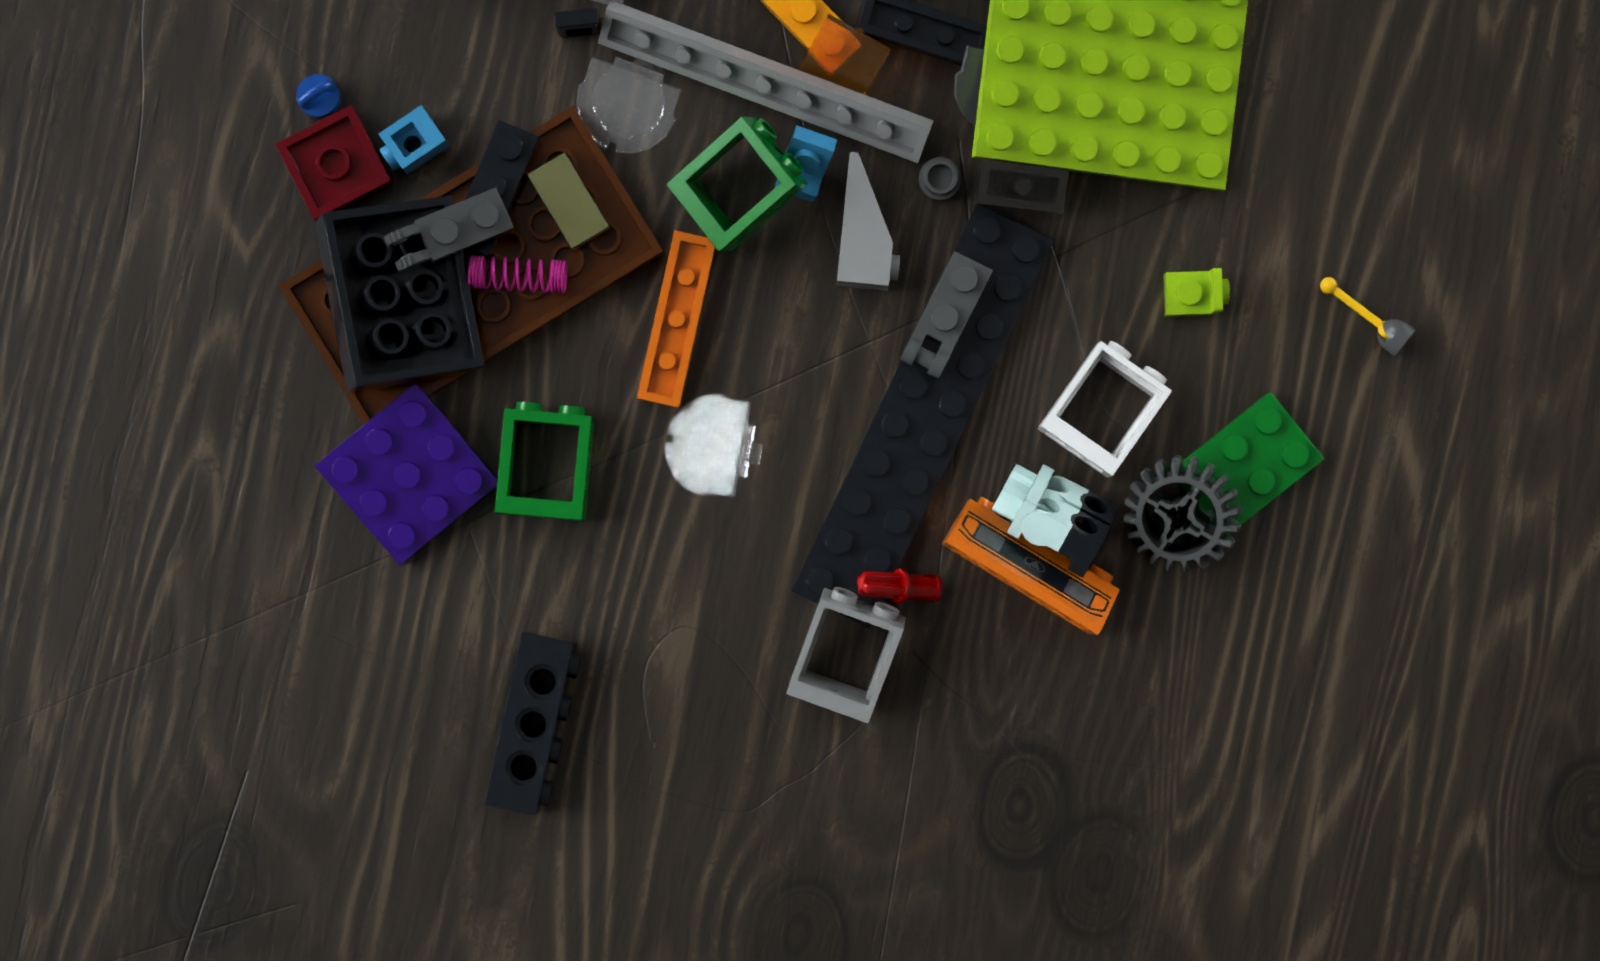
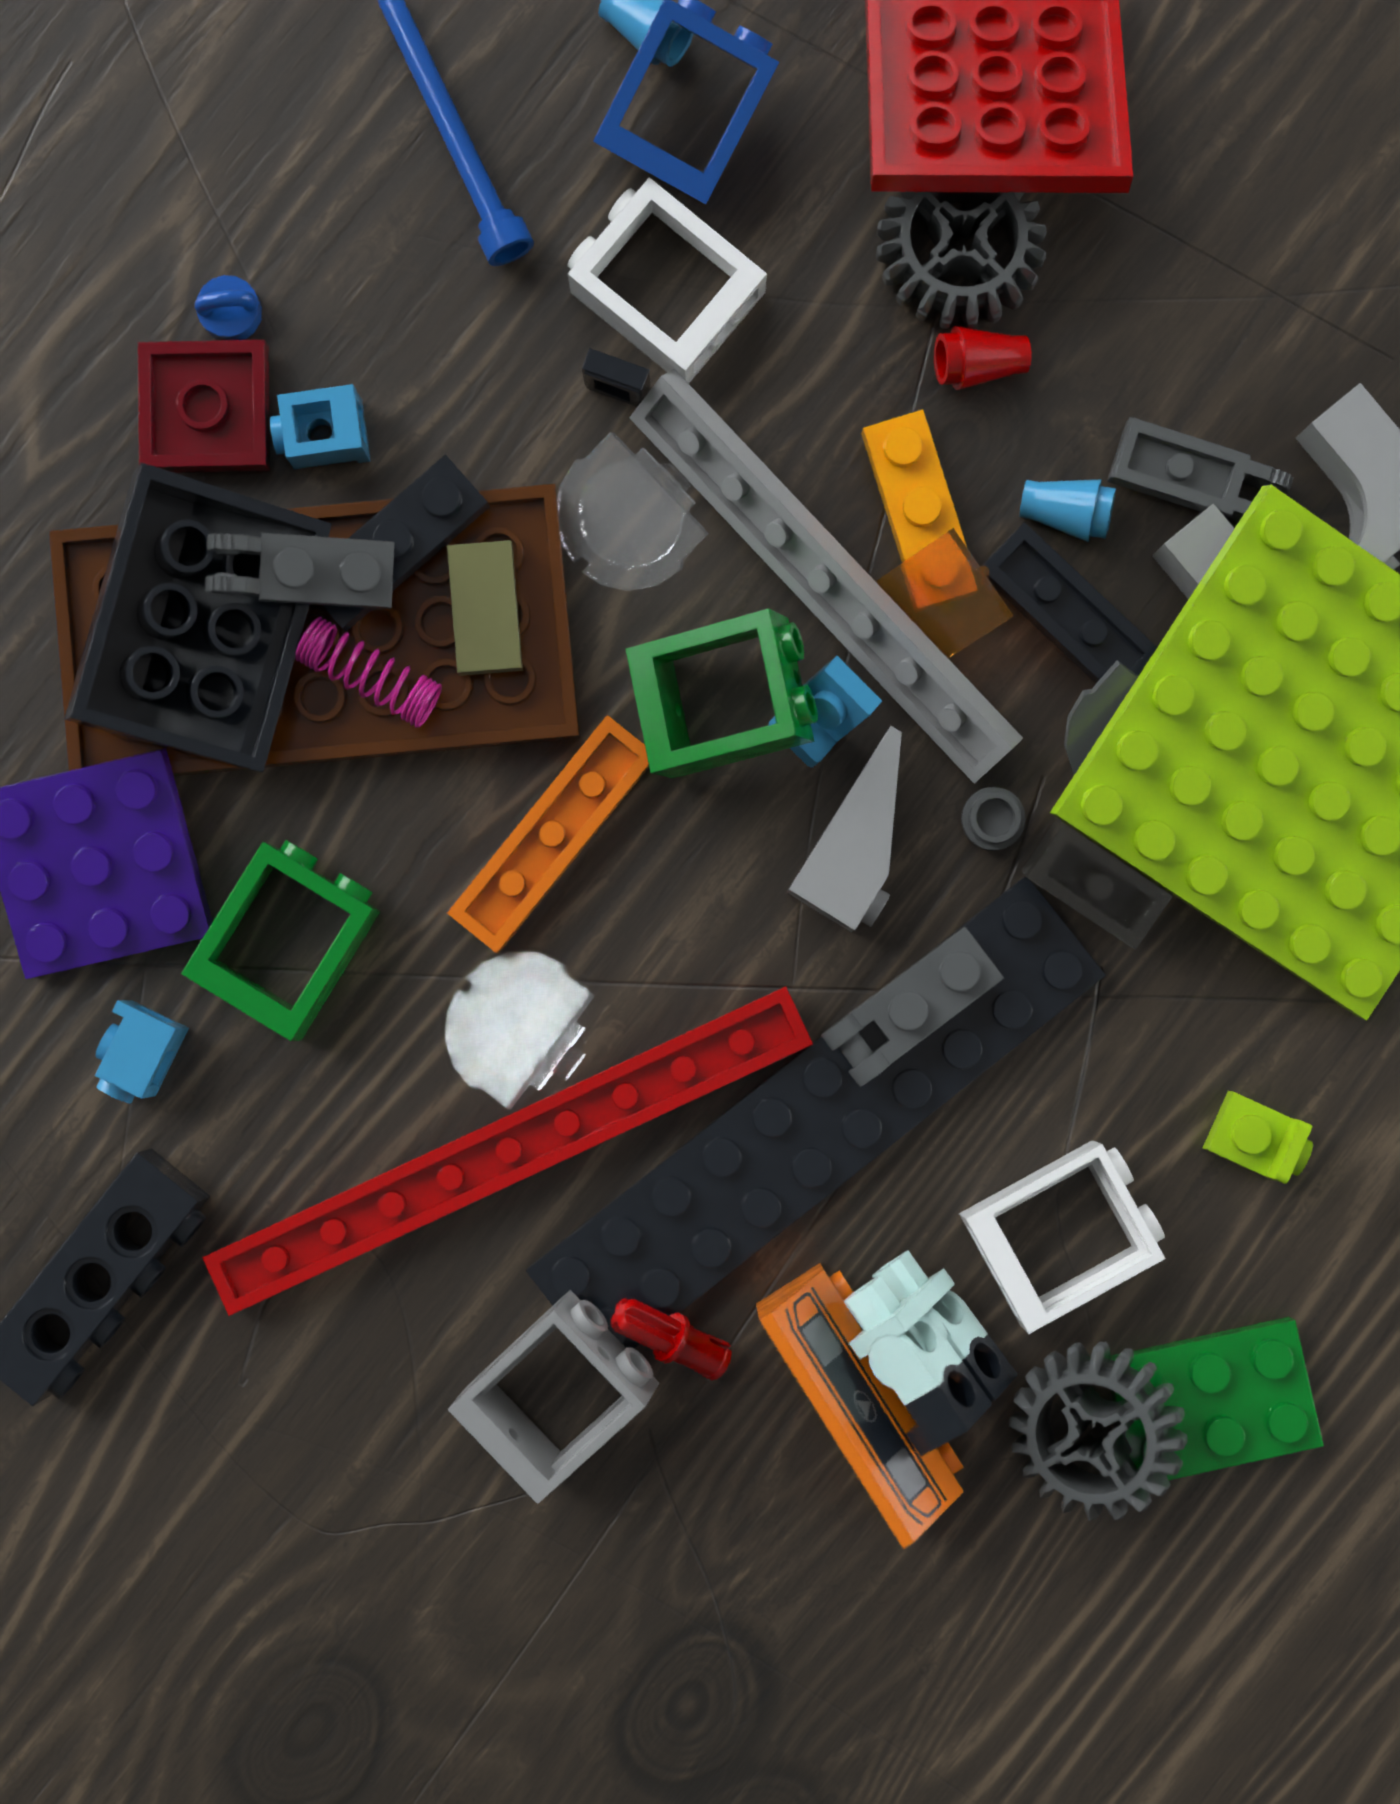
camera: 25 degrees right, 0 degrees up
(490, 575) = (137, 1052): none -> dark azure brick
(744, 523) = (507, 1151): none -> red plate

